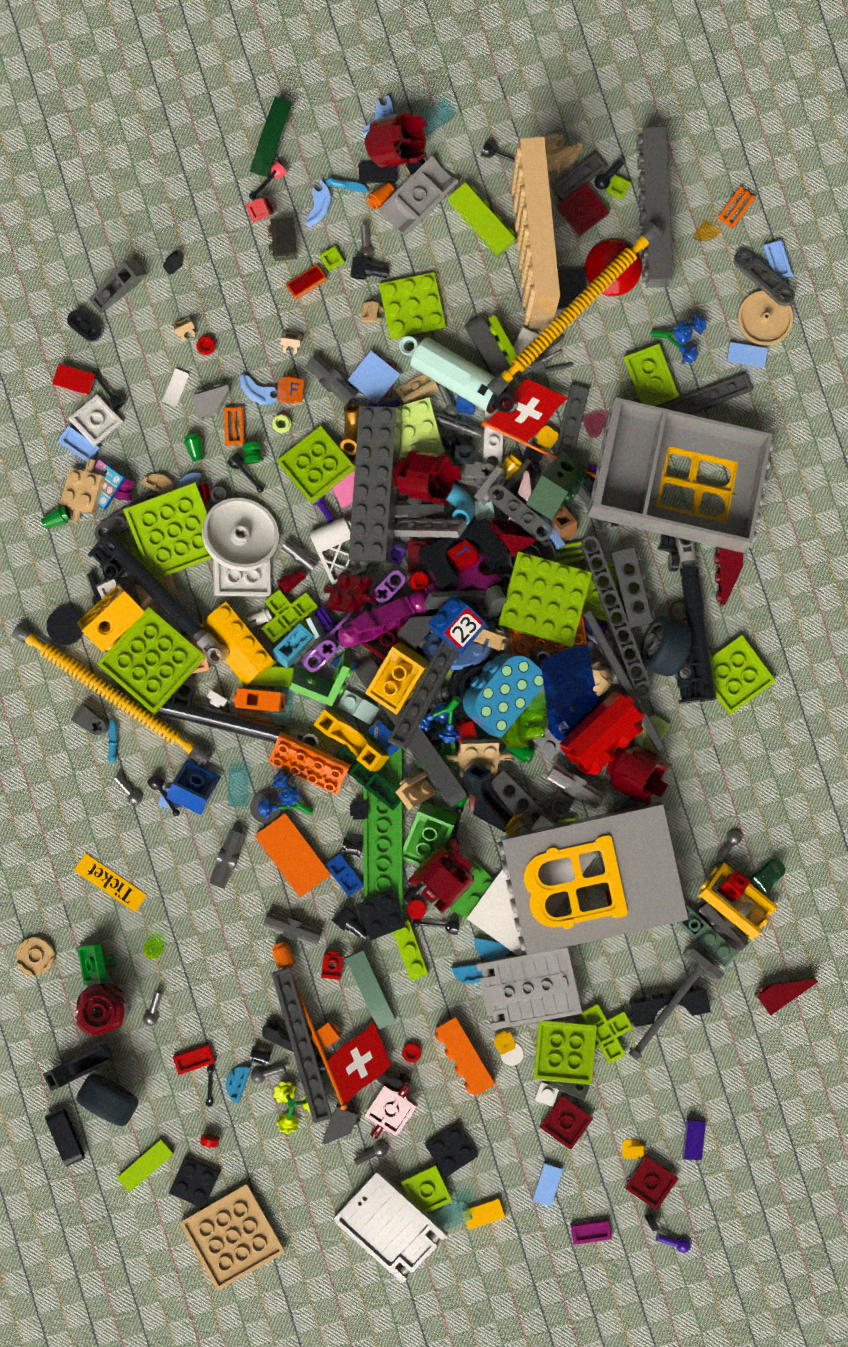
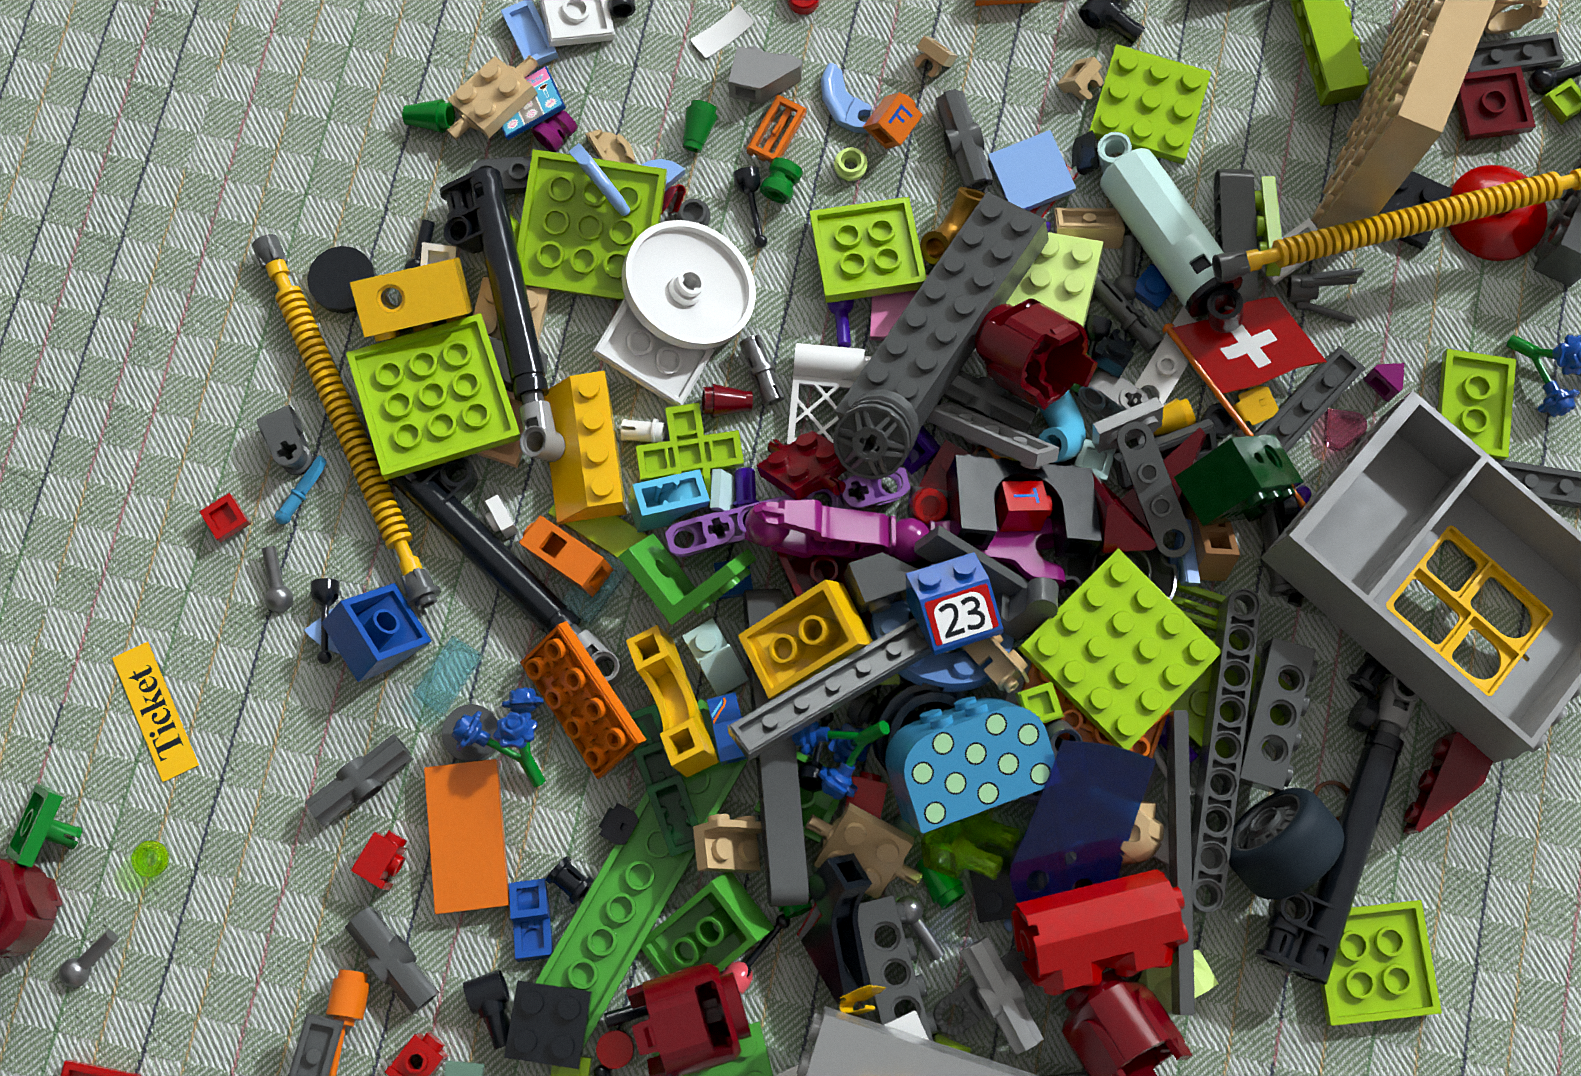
camera: 30 degrees right, 10 degrees down
(85, 774) = (224, 517): none -> red plate
(165, 507) = (596, 175): none -> light blue piece
(260, 887) = (381, 859): none -> red brick
(376, 563) = (890, 420): none -> dark grey wheel
(394, 352) = (1085, 154): none -> black piece
(516, 771) = (914, 916): none -> flat silver bar
(521, 646) = (1041, 701): none -> lime tile
(602, 389) = (1386, 379): none -> magenta slope

